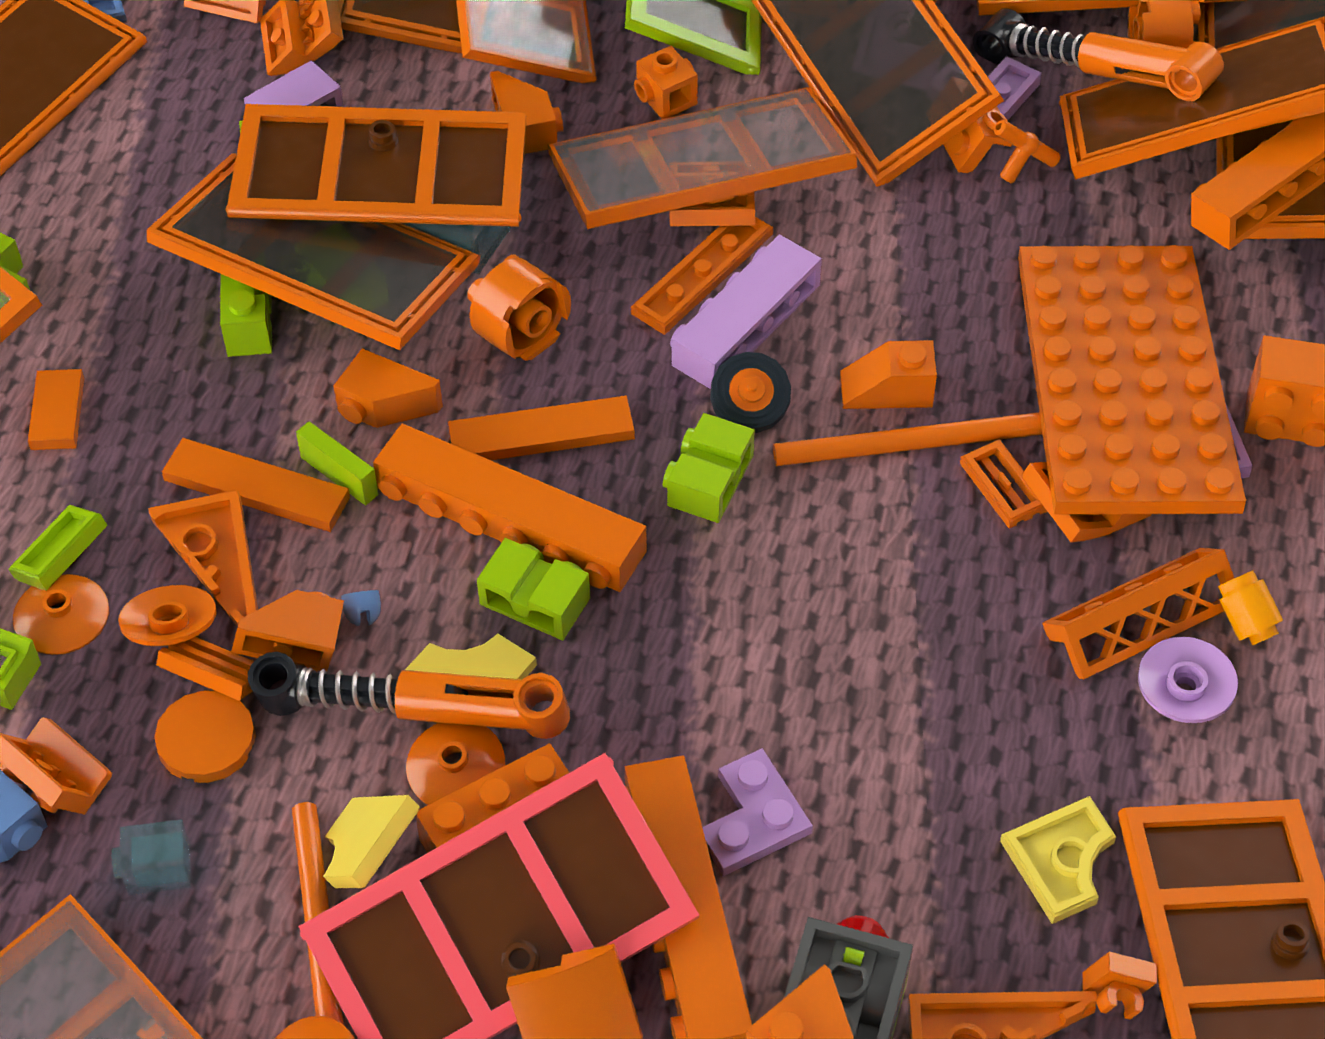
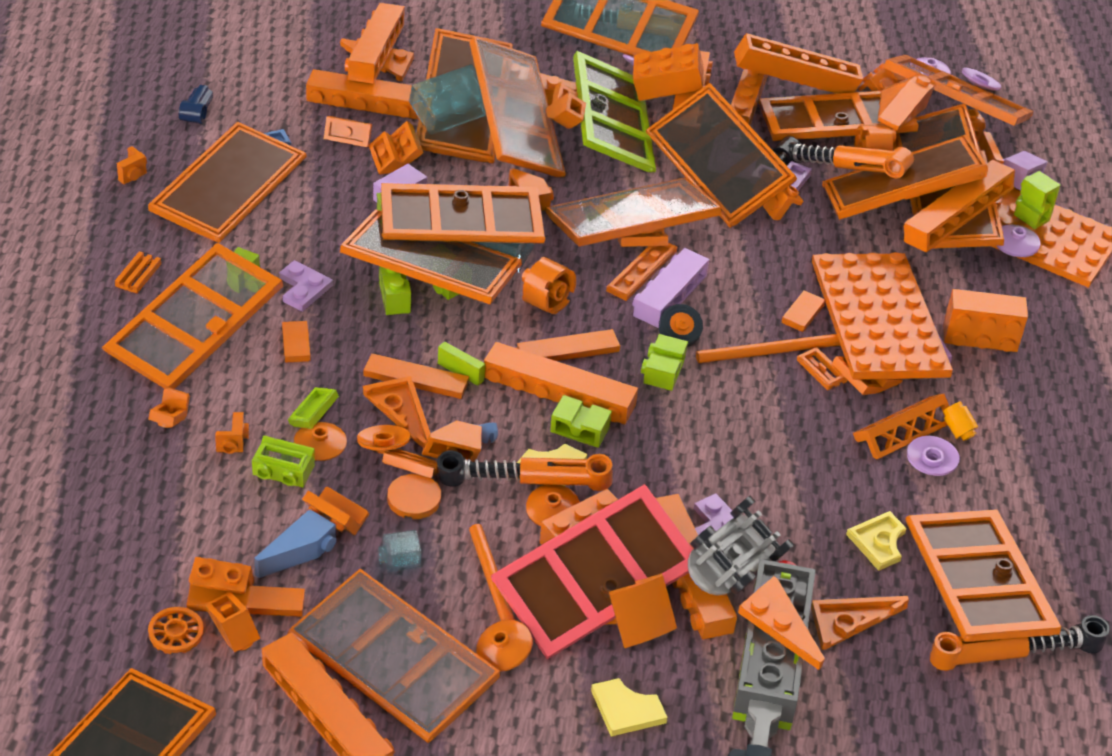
camera: 10 degrees left, 10 degrees down
(100, 296) = (307, 285): none -> lavender plate
(366, 836) = (516, 535): light yellow tile -> none
(385, 392) = (481, 328): orange slope -> none
(666, 82) = (607, 174): orange brick -> none
(752, 903) = (731, 555): none -> light grey piece
(891, 377) = (755, 317): orange slope -> none
(986, 362) = (803, 311): none -> tile
(1026, 145) = (809, 204): orange piece -> none
(1120, 979) = (919, 590): orange tile -> none

